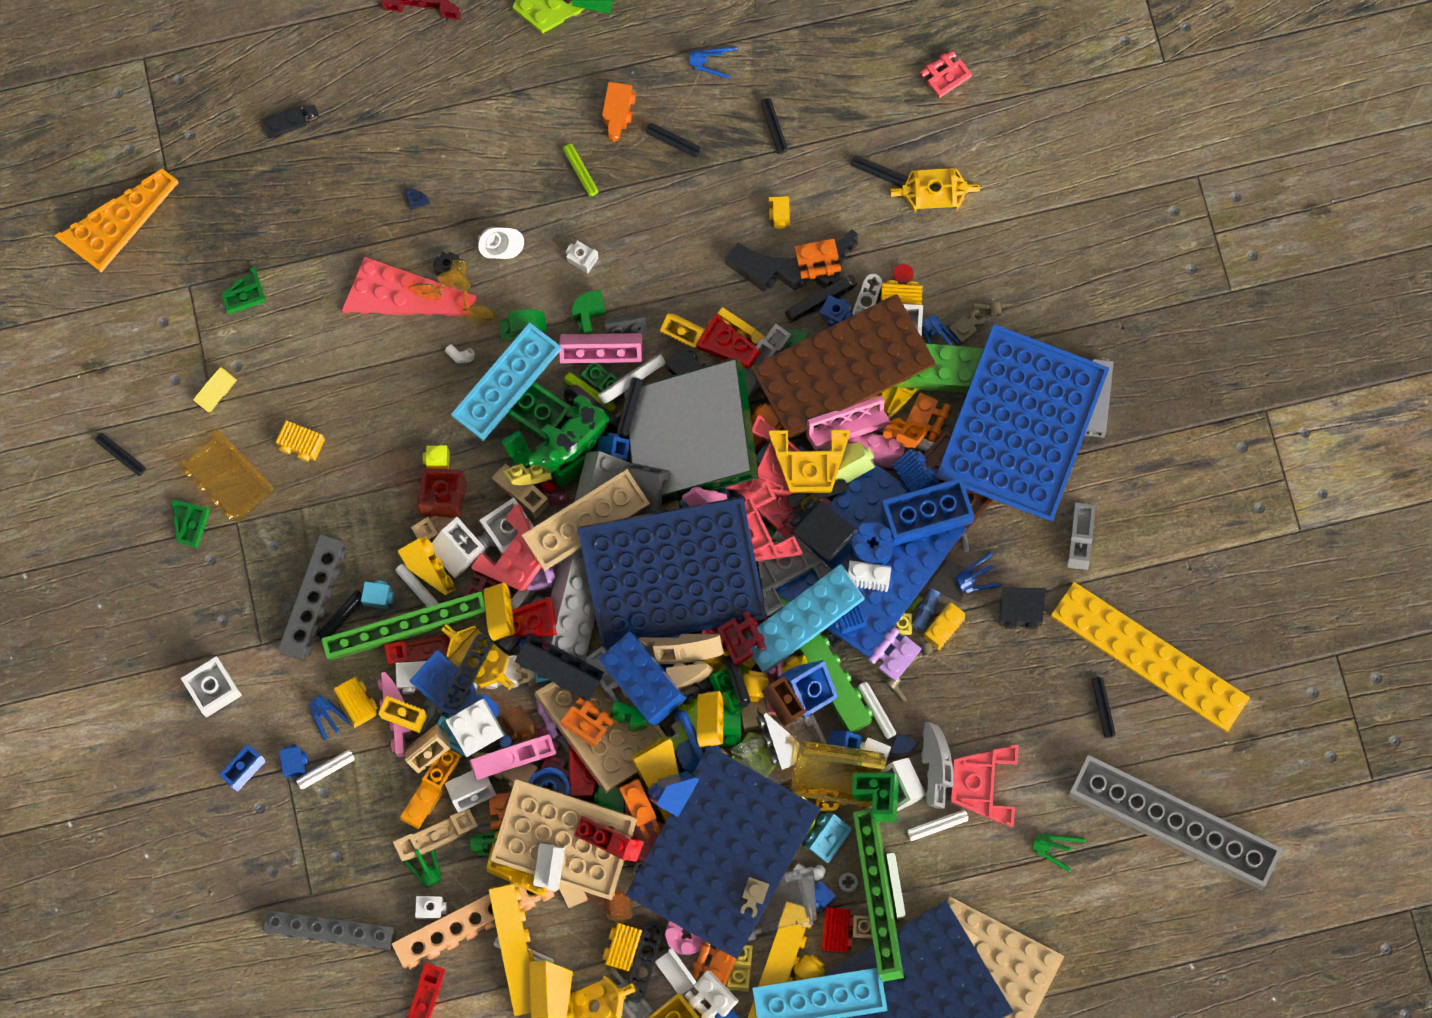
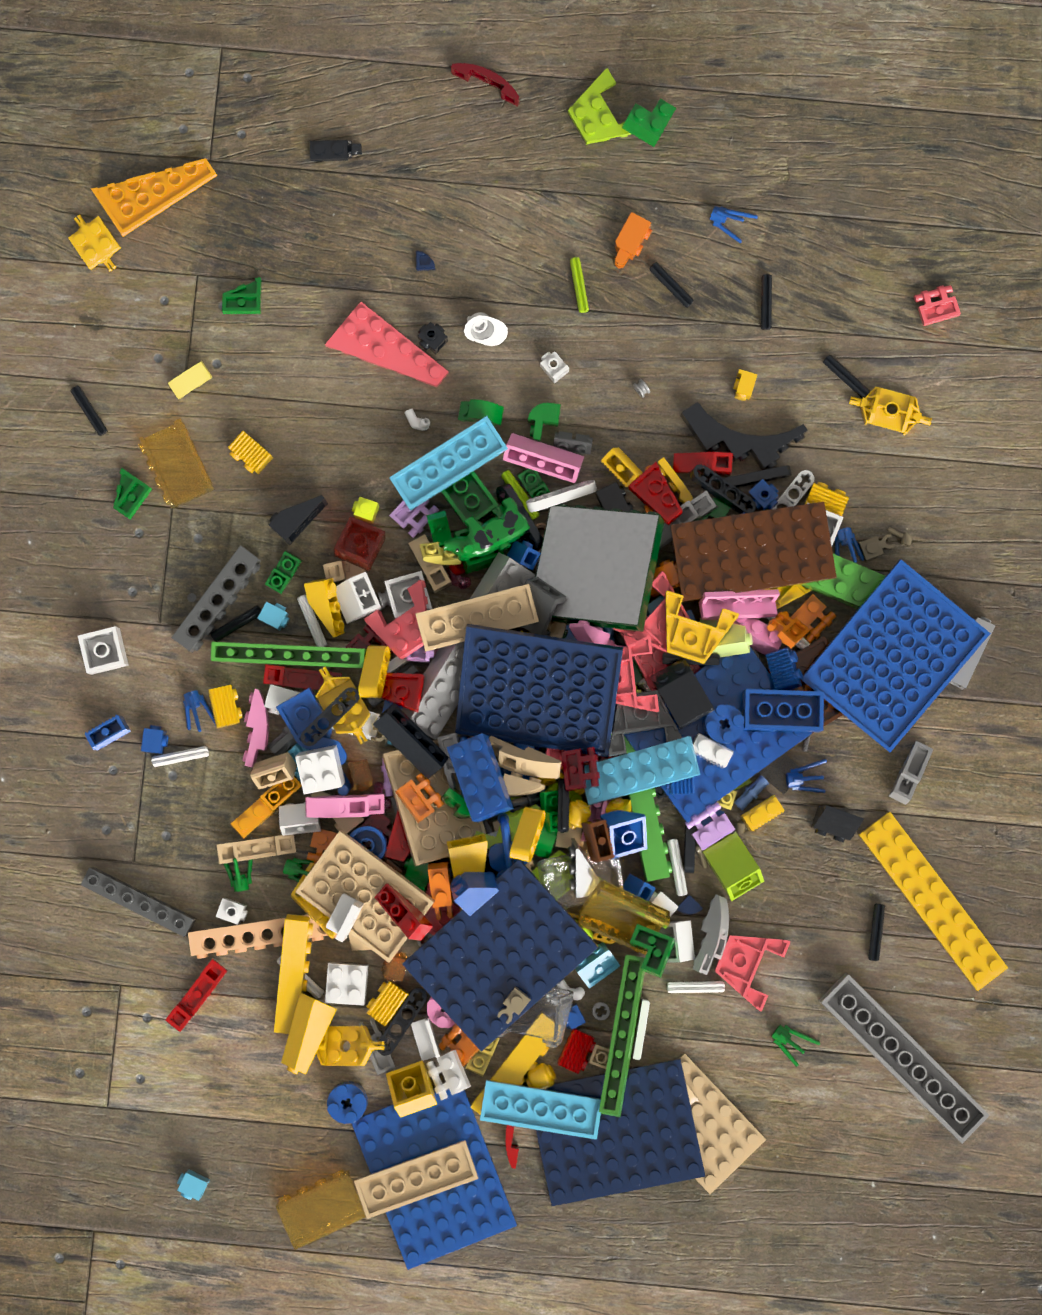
camera: 15 degrees right, 10 degrees up
(74, 287) = (94, 243): none -> yellow plate
(367, 490) = (295, 519): none -> black slope
(372, 549) = (284, 572): none -> green slope
(403, 714) = (260, 735): yellow brick -> none
(454, 279) = (432, 354): clear yellow plant -> none
(479, 450) = (404, 516): none -> lavender plate
(574, 941) = (346, 983): none -> white brick
(629, 406) = (550, 522): black axle -> none
(677, 249) = (641, 388): none -> light grey bush
(765, 300) = (716, 461): none -> red slope
(793, 316) = (721, 493): none -> black beam
(817, 253) = (763, 436): orange plate -> none
(882, 687) = (689, 850): none -> black beam
(903, 273) = (835, 479): red tile -> none
(934, 688) = (733, 866): none -> lime slope

